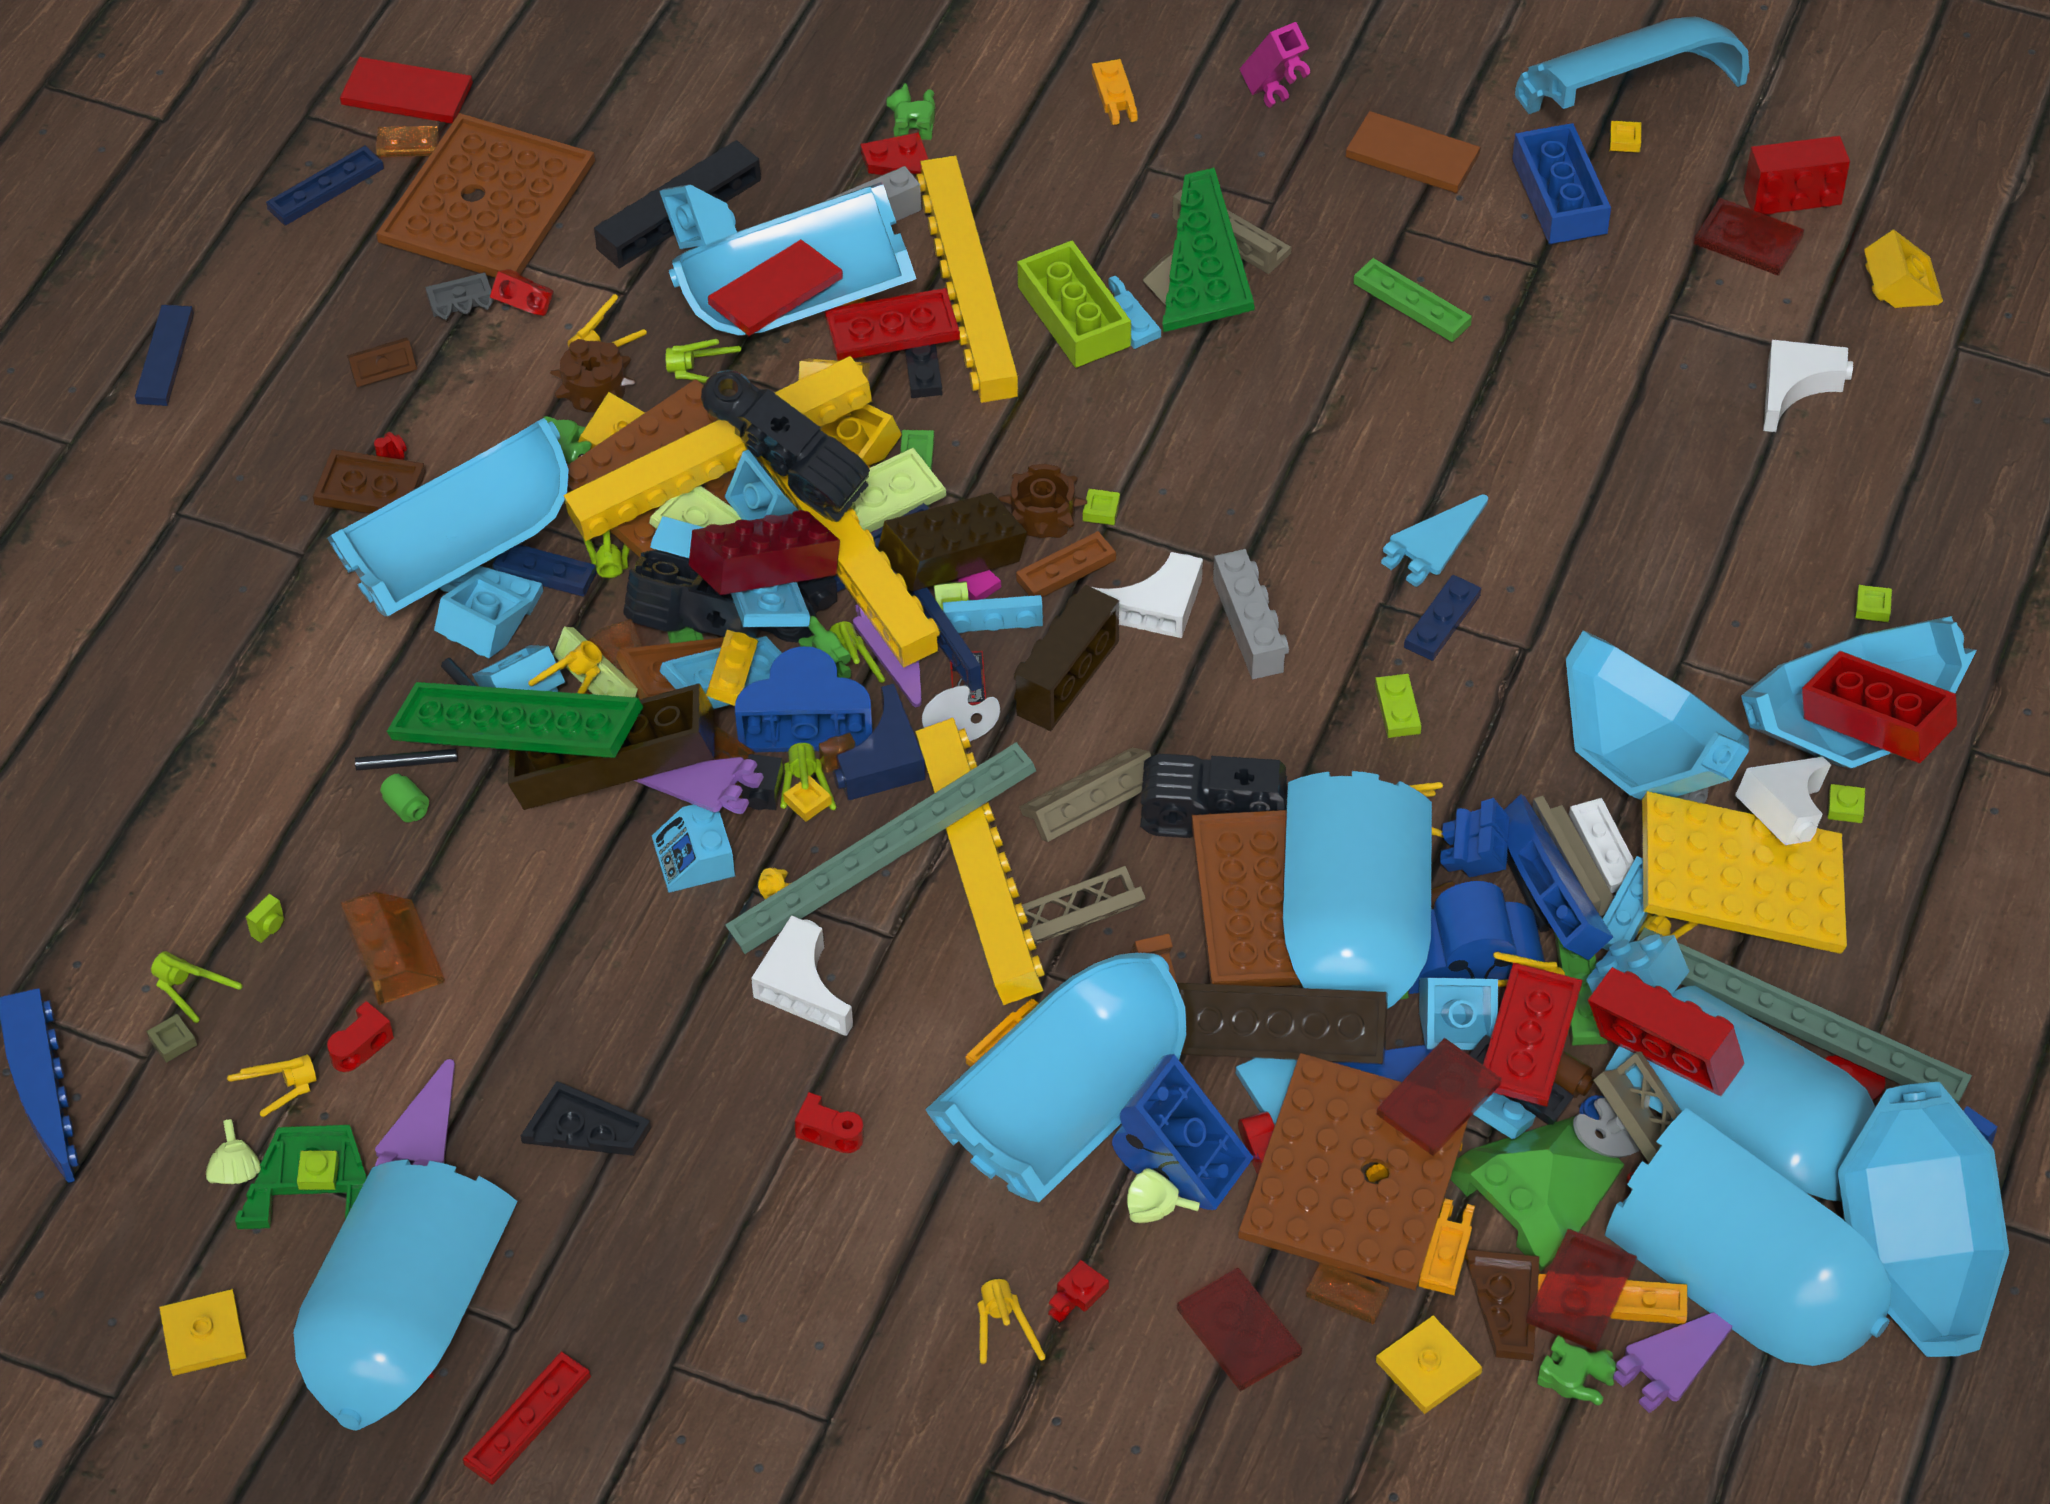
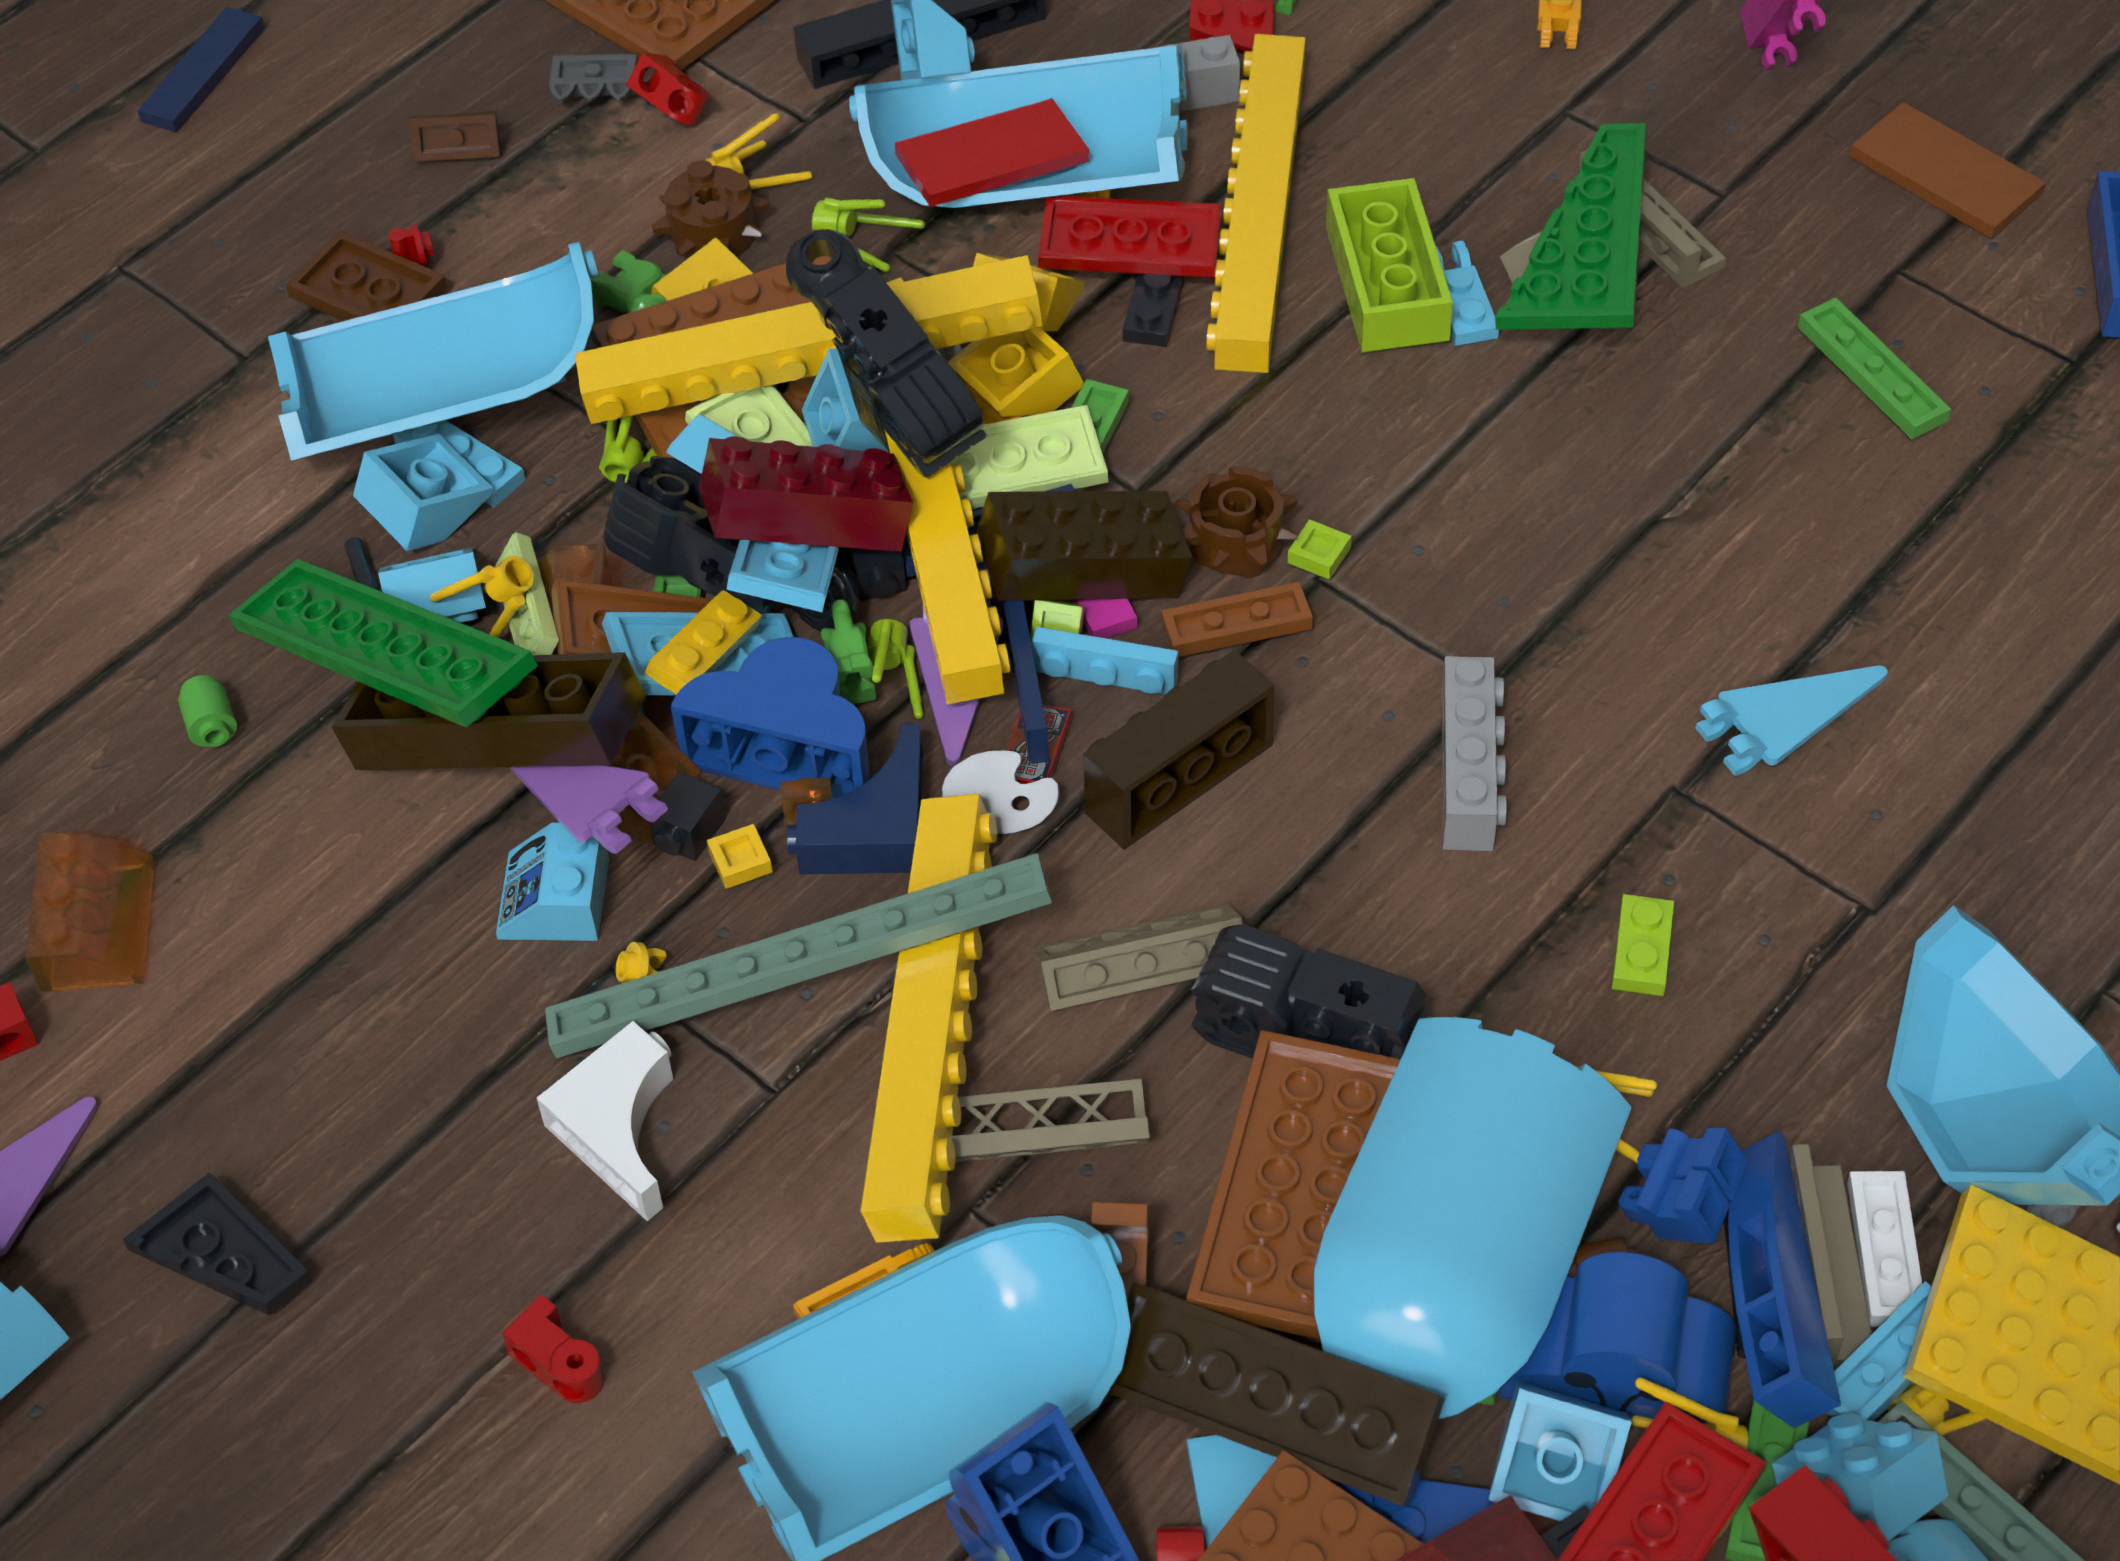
camera: 20 degrees right, 0 degrees up
(406, 759) = (240, 660): black bar -> none
(547, 568) = (537, 450): dark blue plate -> none
(802, 764) = (754, 805): lime plant -> none
(1164, 599) = (1351, 702): white arch -> none
(1442, 617) = (1757, 831): dark blue plate -> none

